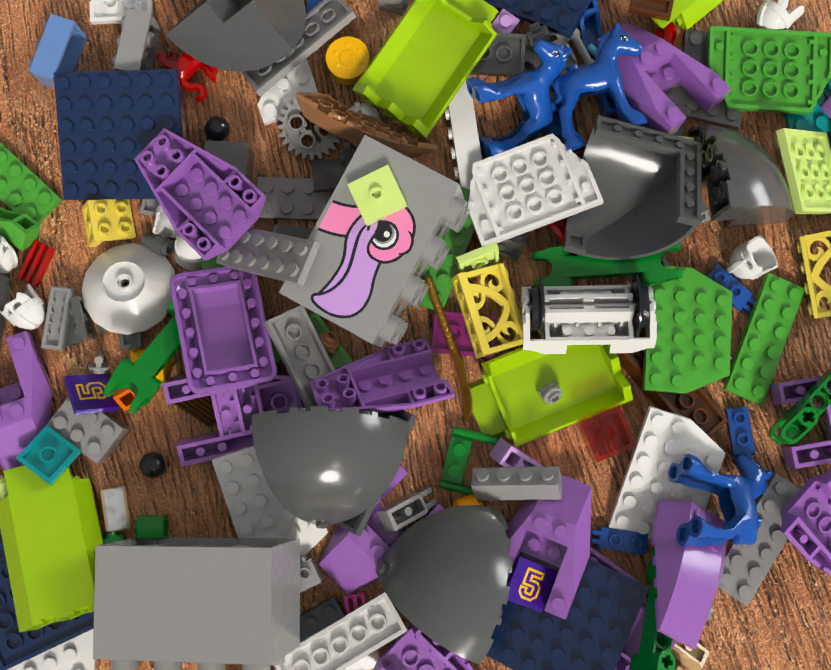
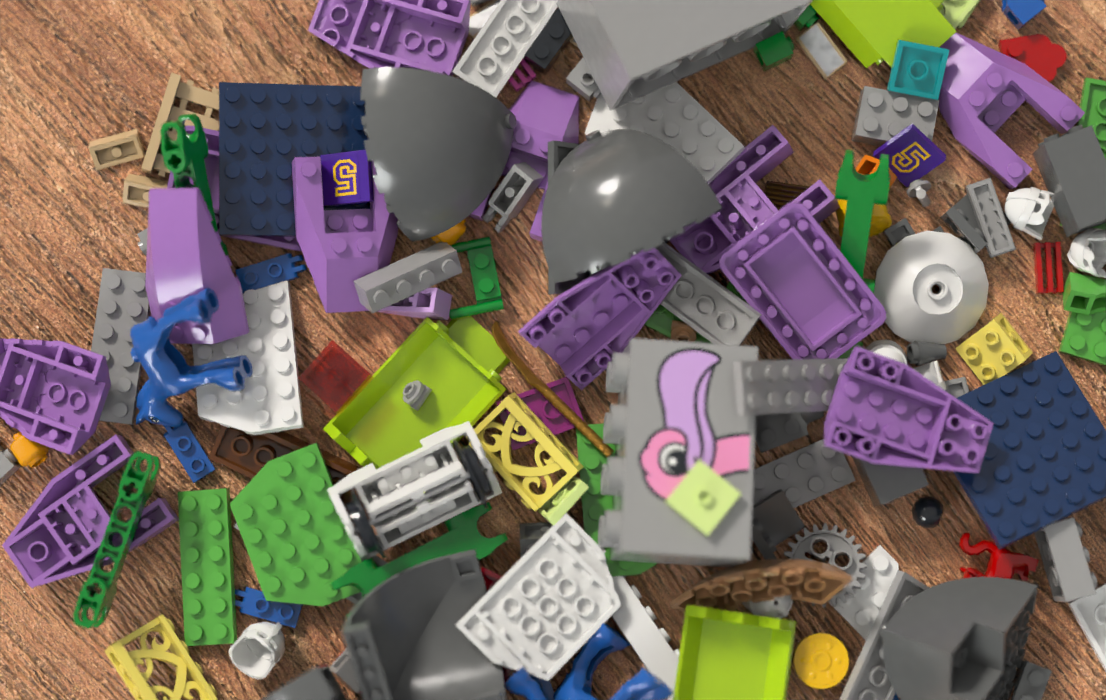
camera: 155 degrees right, 0 degrees up
(152, 465) = (806, 113): black piece -> none

